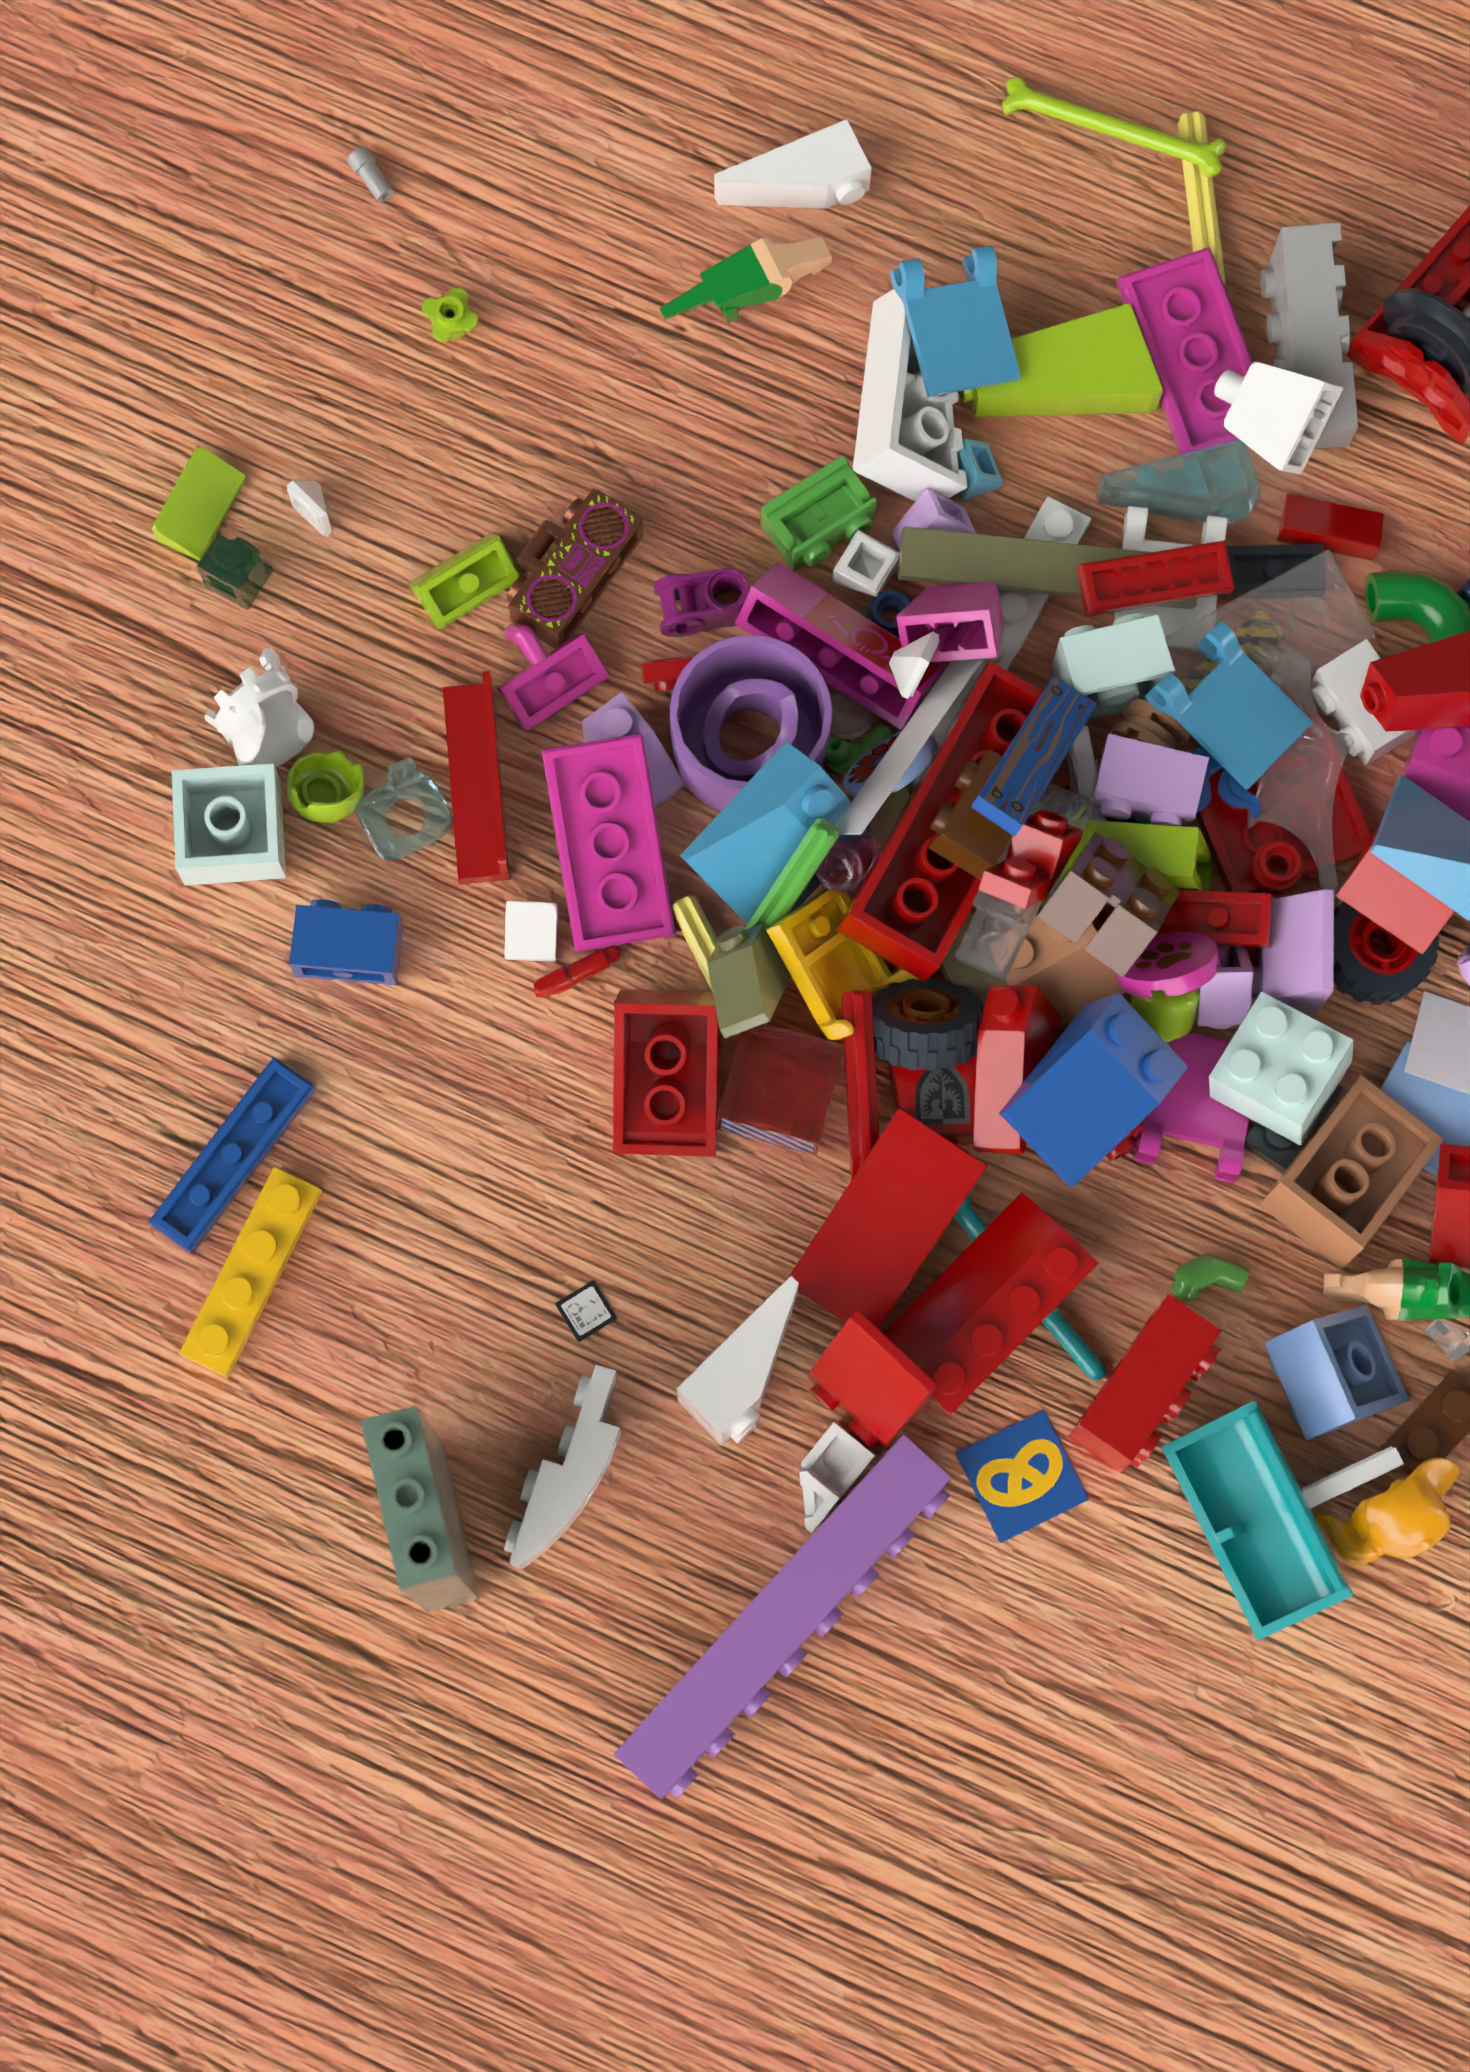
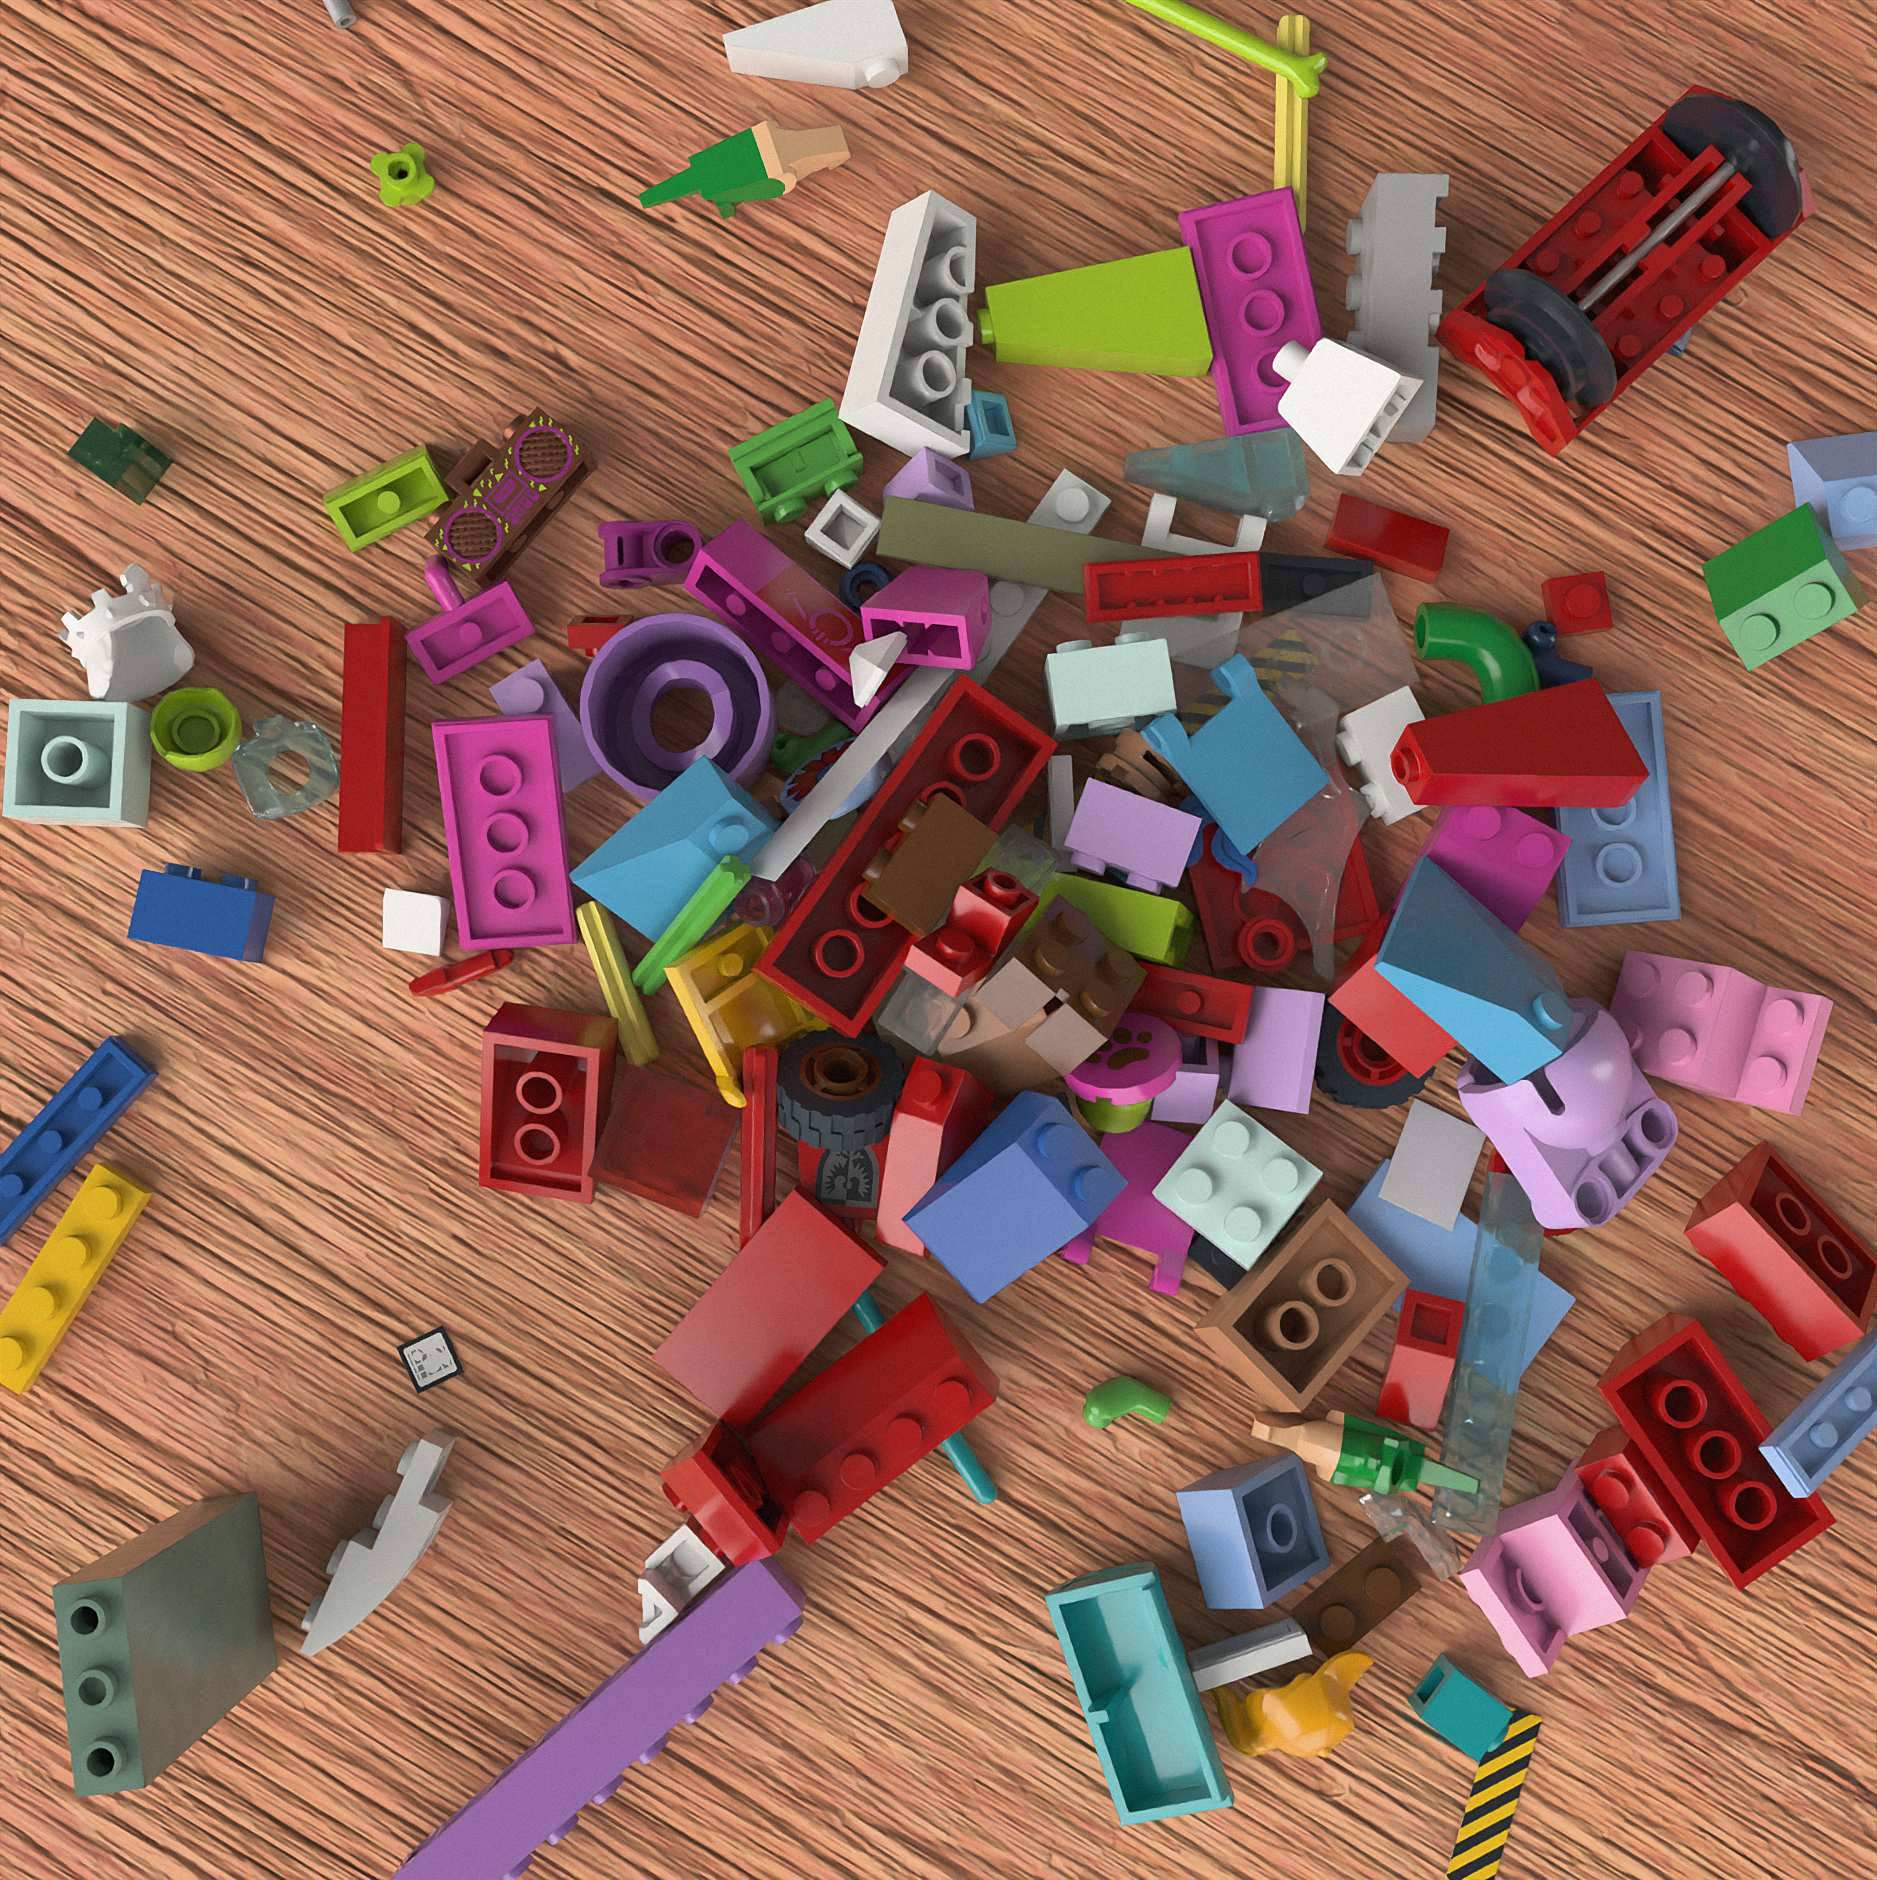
camera: 10 degrees right, 10 degrees up
(198, 504) = (90, 371): lime slope -> none
(309, 501) = (220, 386): white slope -> none
(734, 1378) = (561, 1490): white slope -> none
(746, 978) = (635, 1021): olive slope -> none
(958, 326) = (980, 256): dark azure flag -> none
(1022, 1476) = (889, 1599): blue sticker -> none
(1033, 756) = (991, 806): blue tile -> none
(1147, 1386) = (1033, 1535): red brick -> none

